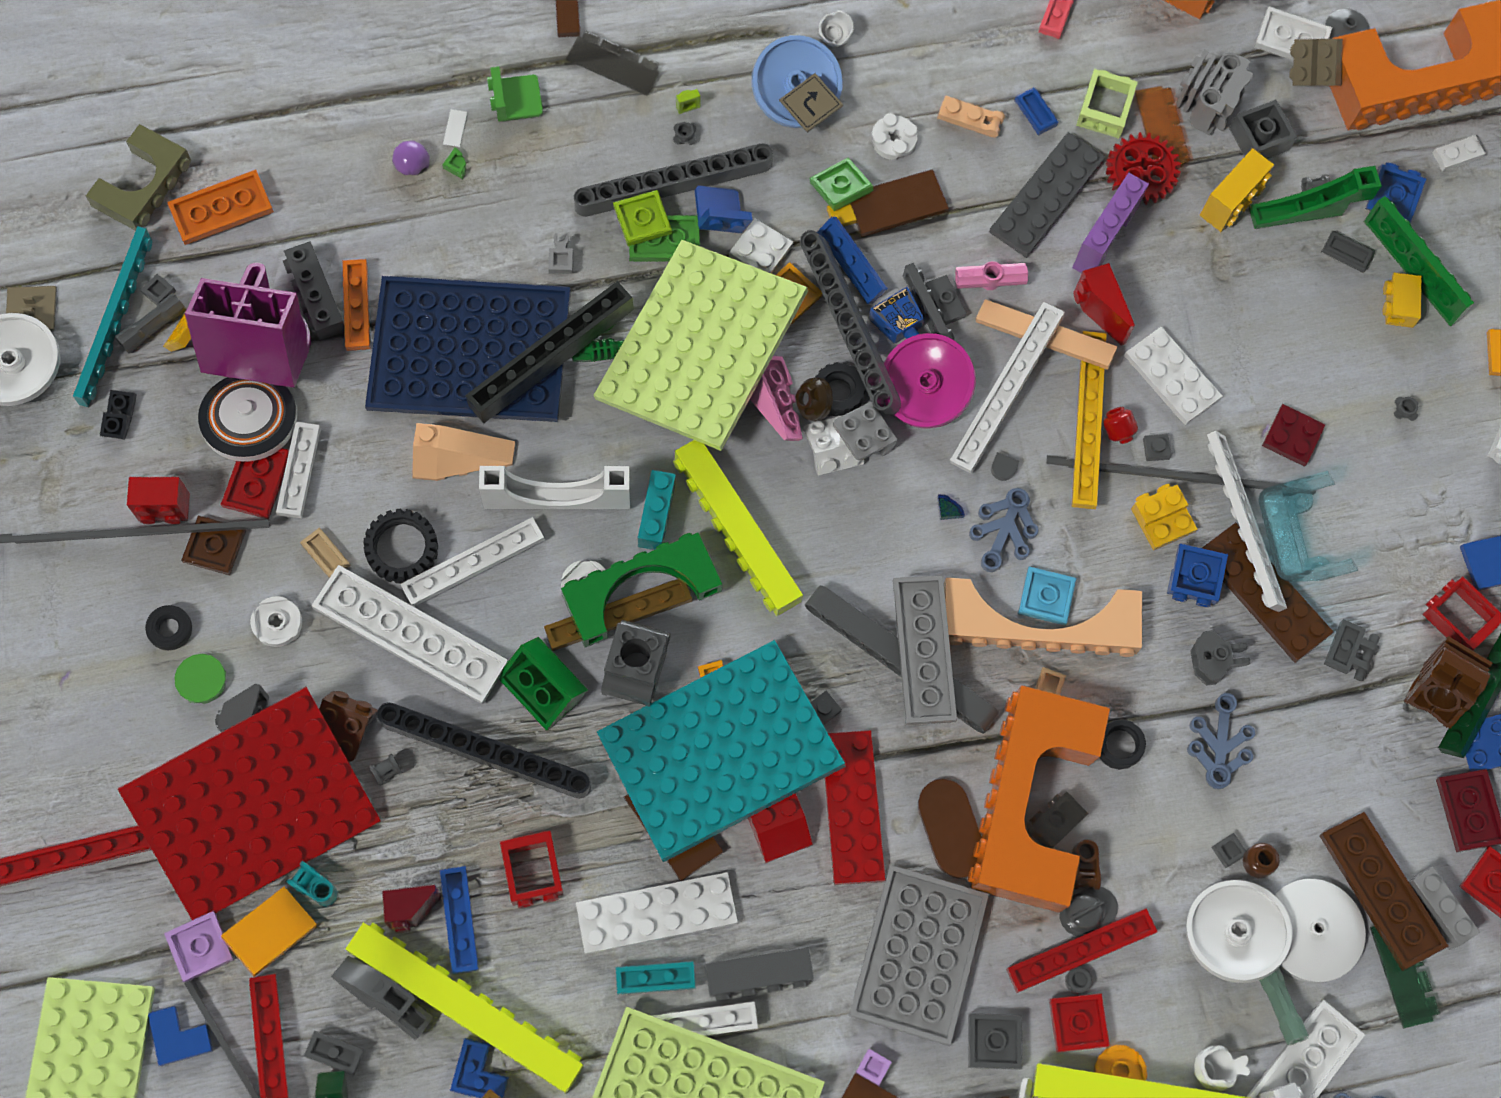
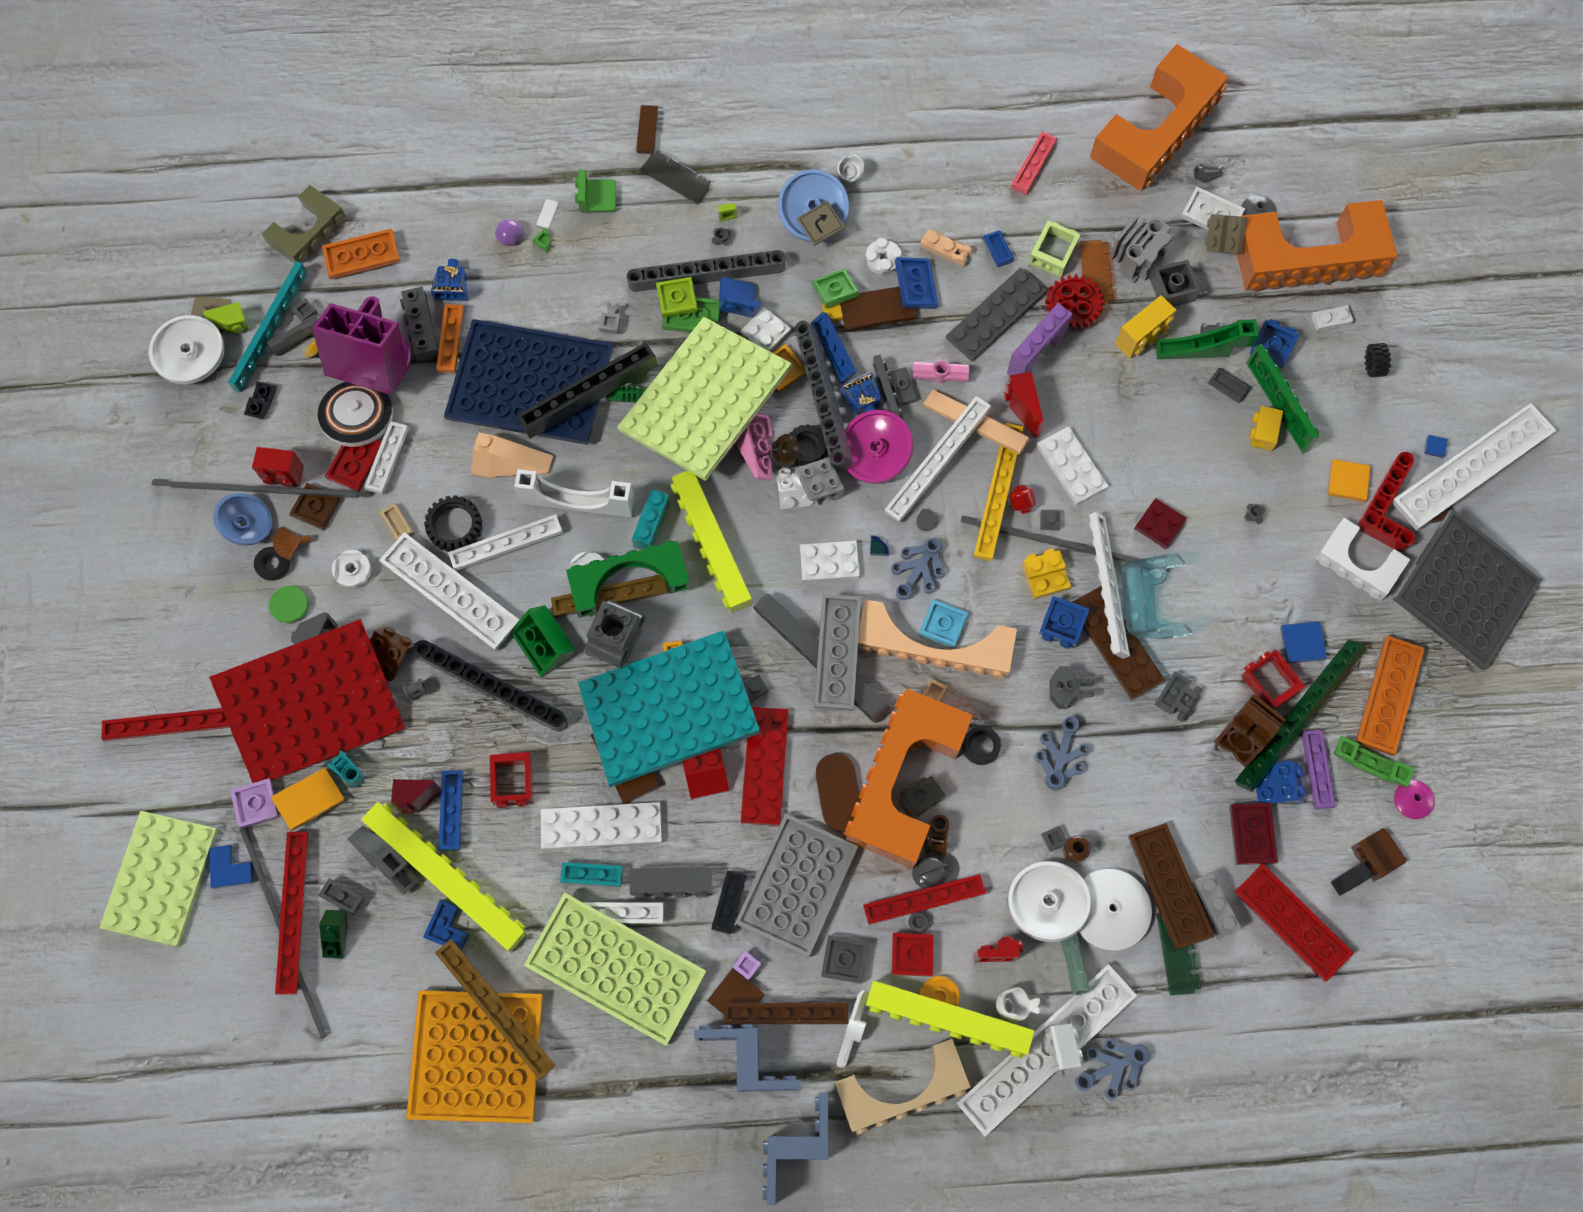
camera: 15 degrees right, 0 degrees up
(58, 311) = (227, 318): none -> lime slope
(130, 565) = (247, 511): none -> medium blue dish
(186, 598) = (286, 543): none -> dark orange hand
(344, 232) = (450, 282): none -> blue torso
(837, 989) = (729, 902): none -> black plate
(890, 534) = (829, 561): none -> white plate
(941, 166) = (916, 283): none -> blue tile
(1193, 1001) = (1004, 951): none -> red plate

